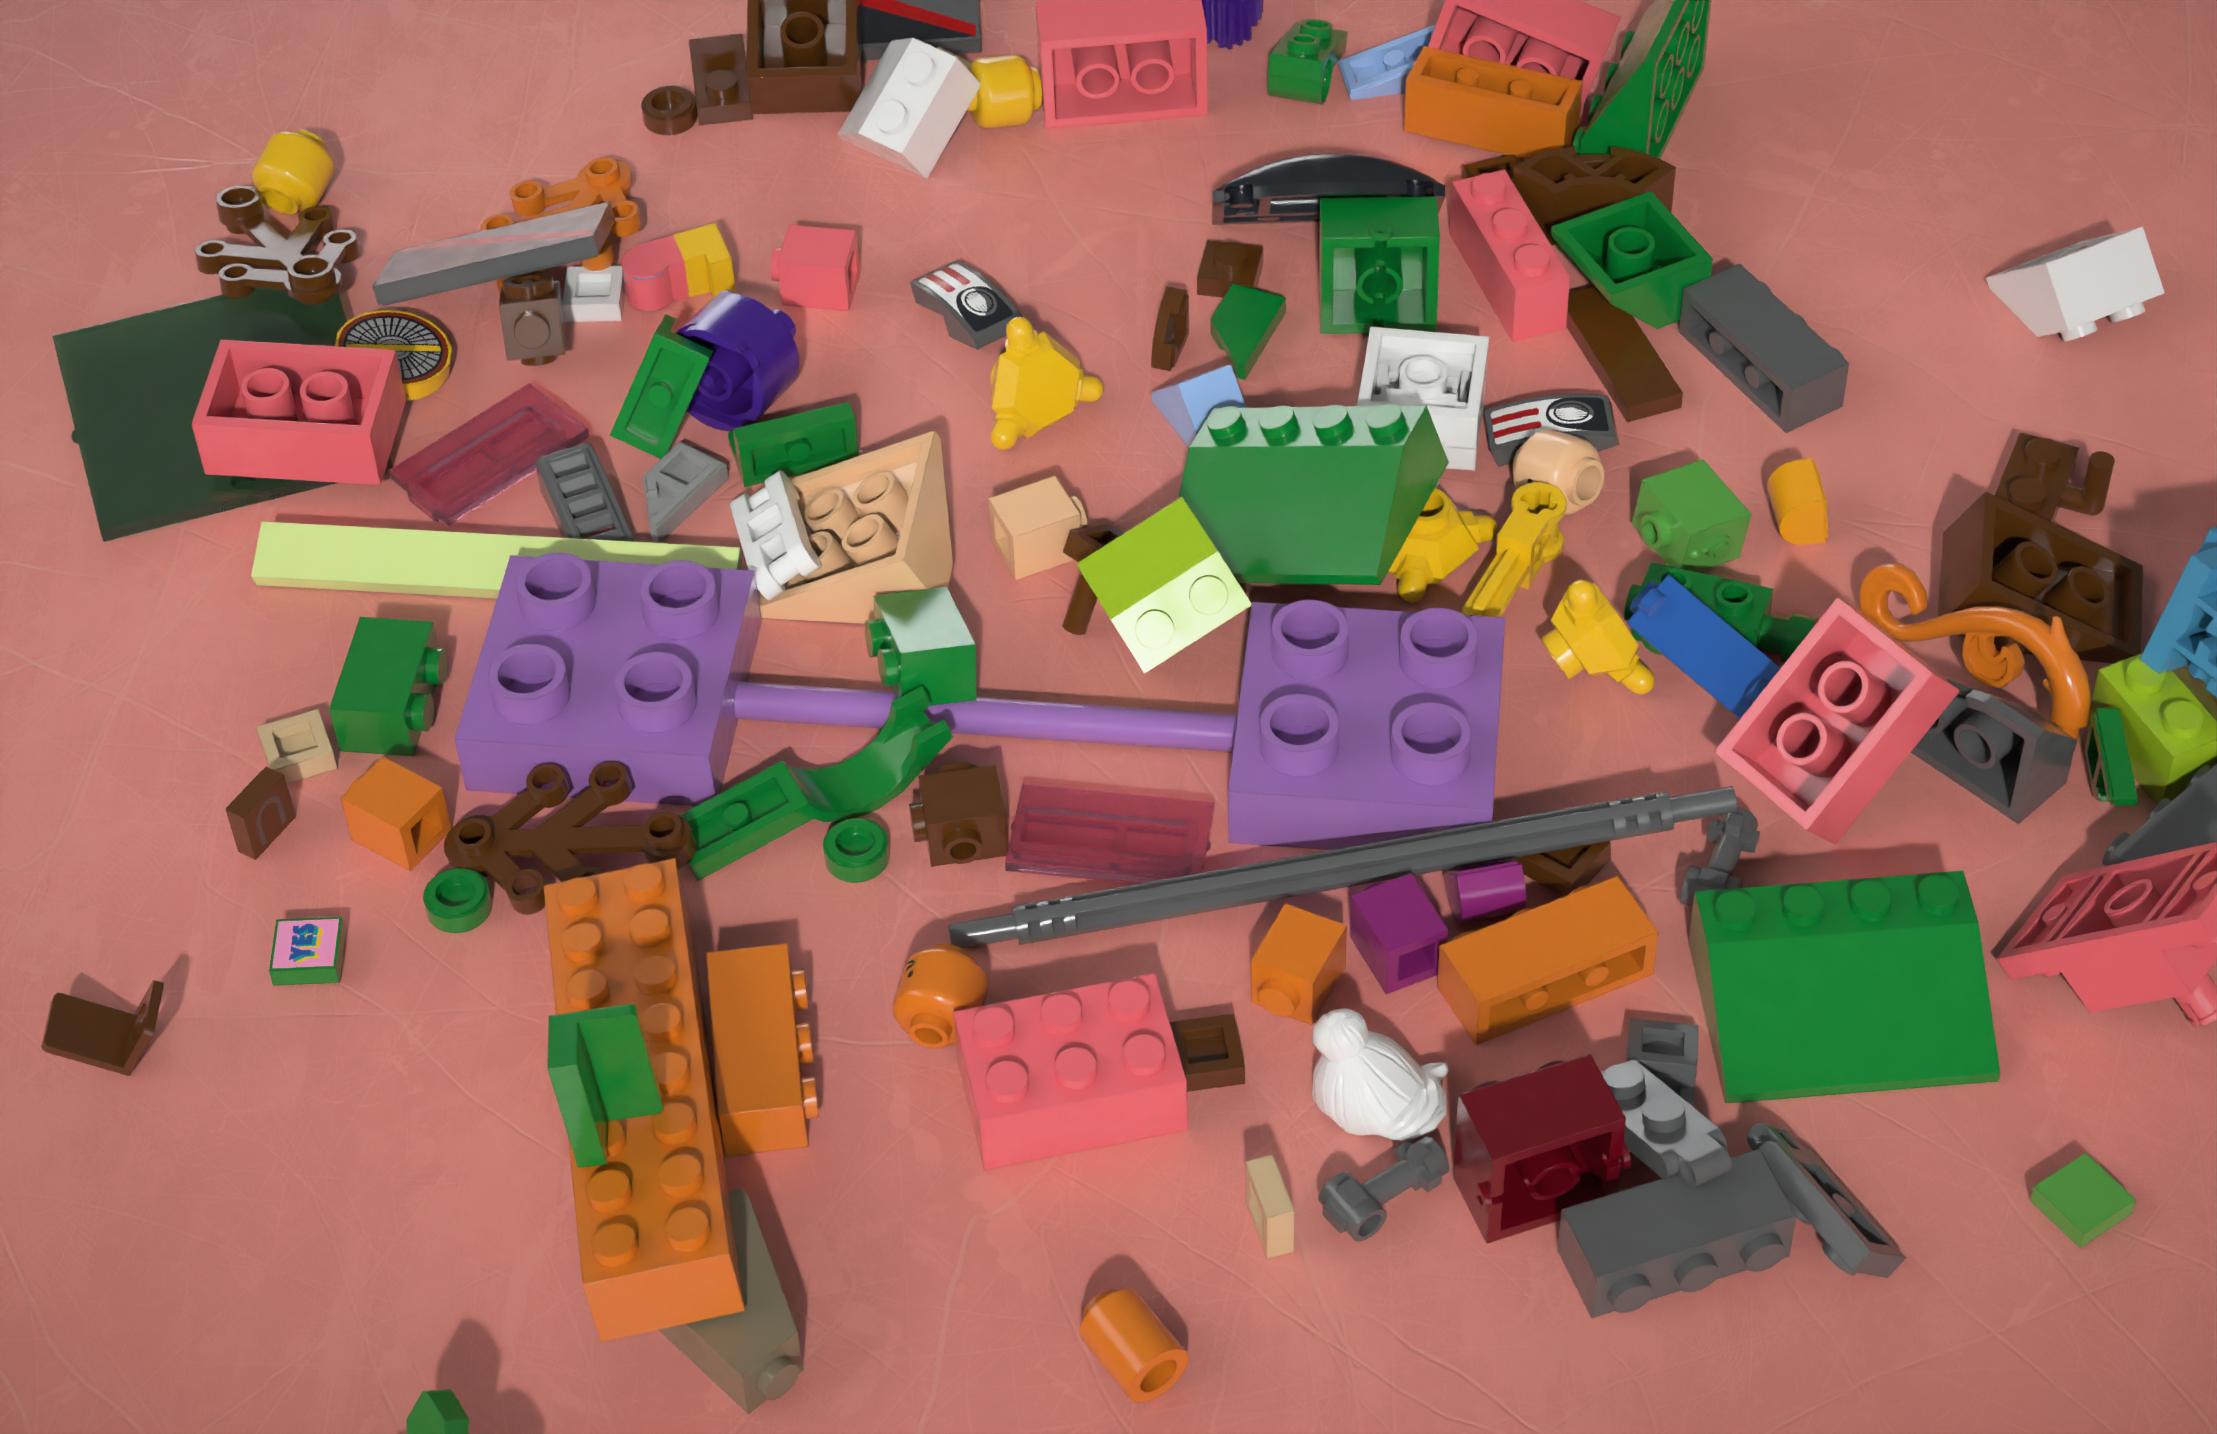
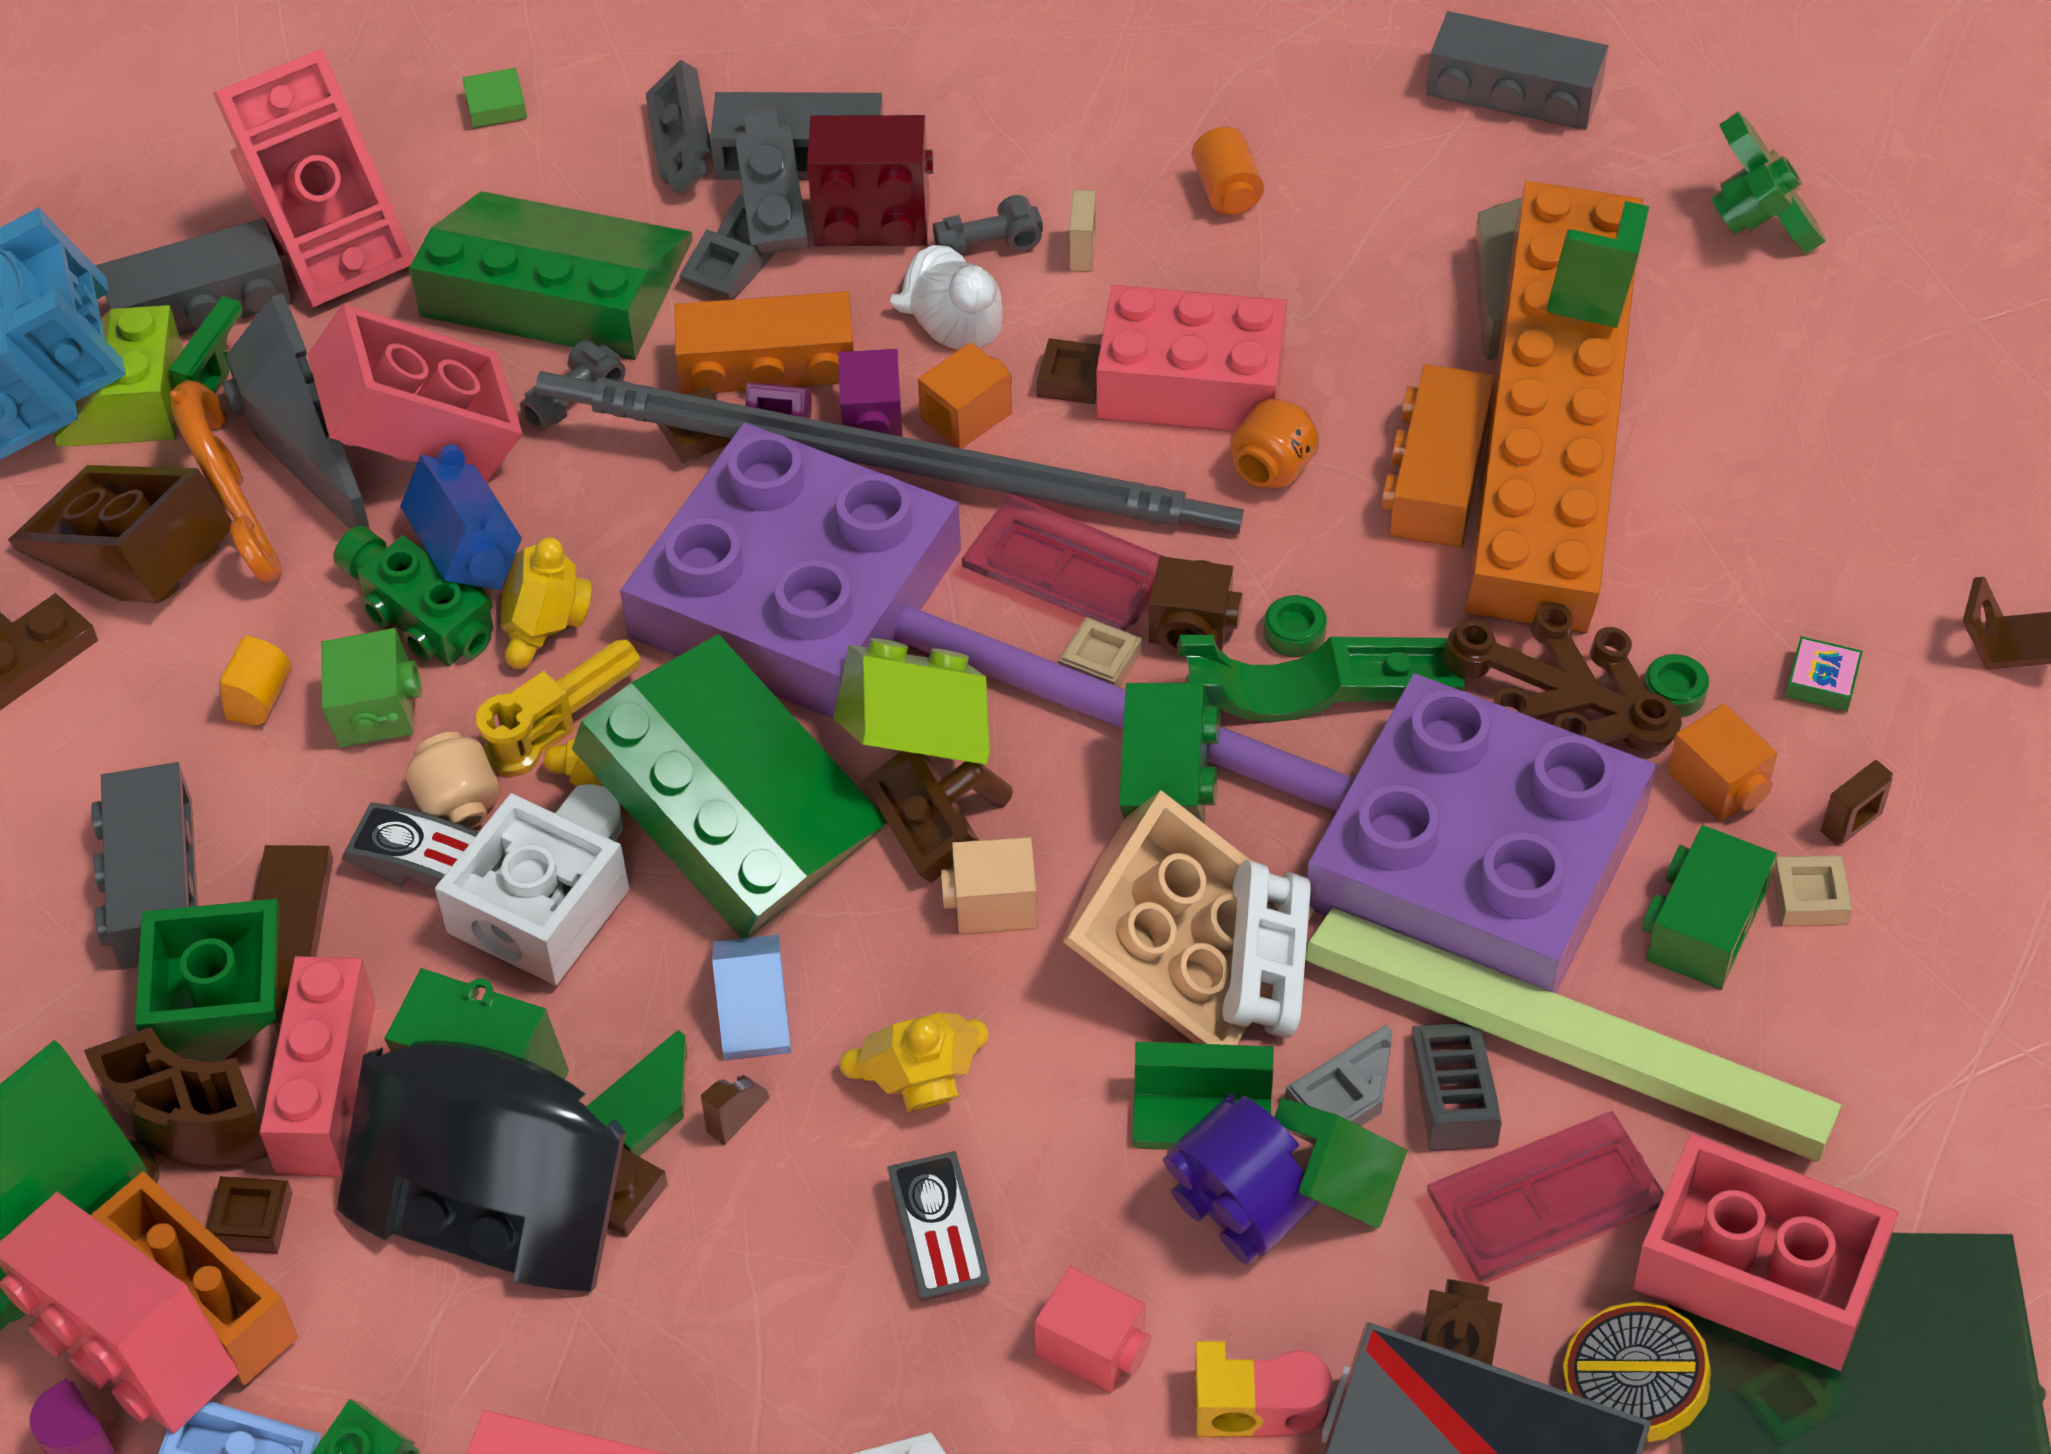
camera: 160 degrees left, 5 degrees up
(1036, 762) = (1102, 651): none -> tan tile

